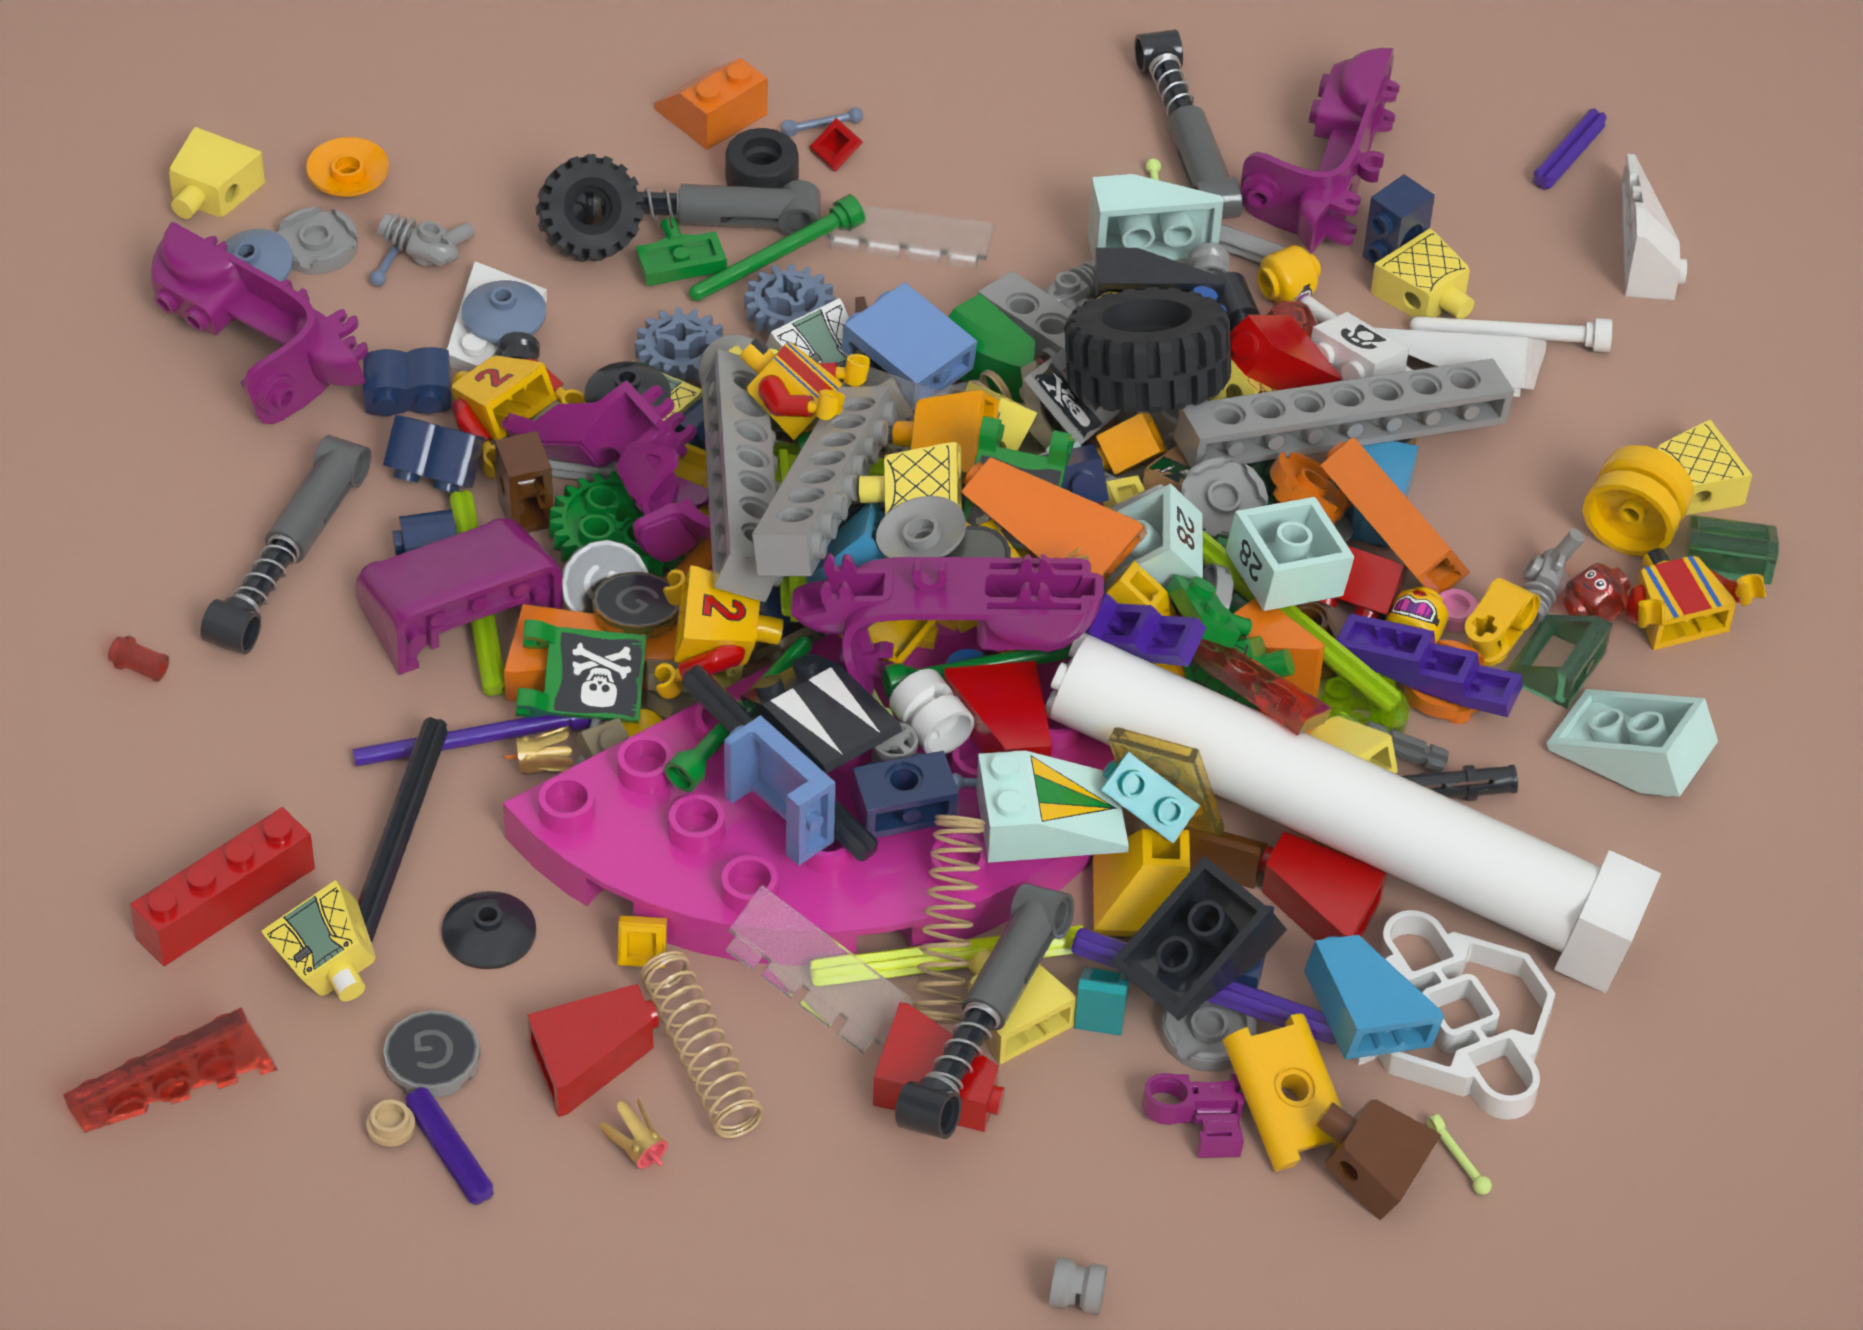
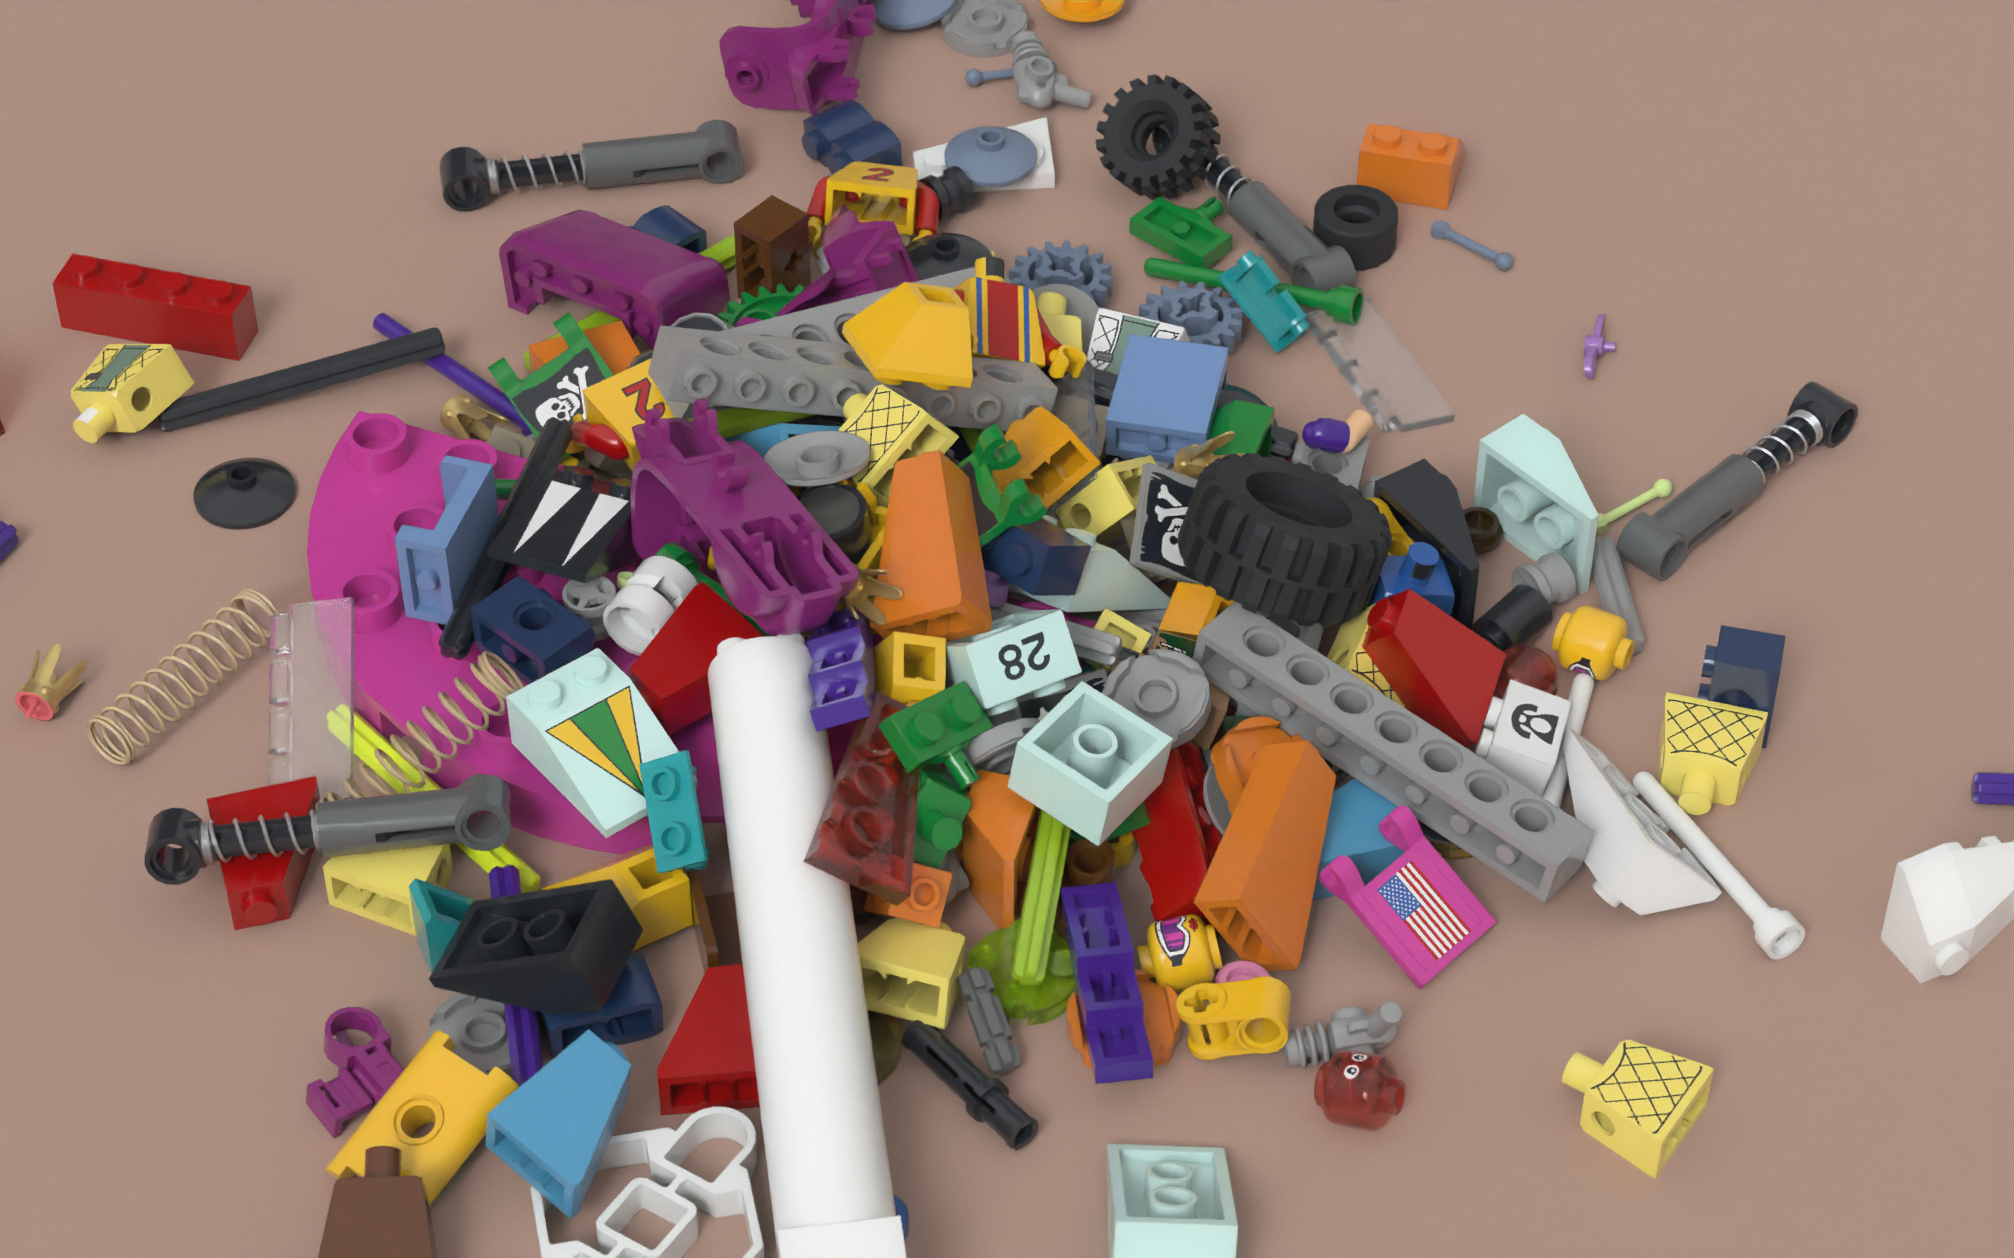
camera: 60 degrees right, 5 degrees down
(129, 654) = (388, 142): clear red pin -> none
(432, 1052) = (65, 519): black tile -> none
(433, 452) = (767, 173): dark blue brick -> none
(590, 1042) = (131, 605): red slope -> none
(641, 939) = (284, 579): yellow tile -> none
(797, 245) = (1273, 314): none -> teal hinge
(836, 144) = (1448, 263): red slope -> none
(840, 415) = (915, 337): none -> yellow slope
(984, 119) = (1595, 346): none -> medium lavender piece
(999, 359) = (1194, 458): none -> pearl gold piece
(1012, 280) = (1336, 435): none -> dark purple arm
(1078, 1285) = (58, 1072): light grey wheel -> none
(1179, 766) = (706, 801): clear yellow tile -> none
(1347, 115) = (1866, 593): magenta piece -> none
(1461, 485) = (1413, 905): none -> dark pink flag
(1563, 683) = (1245, 1117): clear green tile -> none
(1638, 500) = (1517, 1054): yellow wheel -> none
(1686, 599) = (1414, 1164): torso -> none
(1733, 546) = (1539, 1196): clear green tile -> none

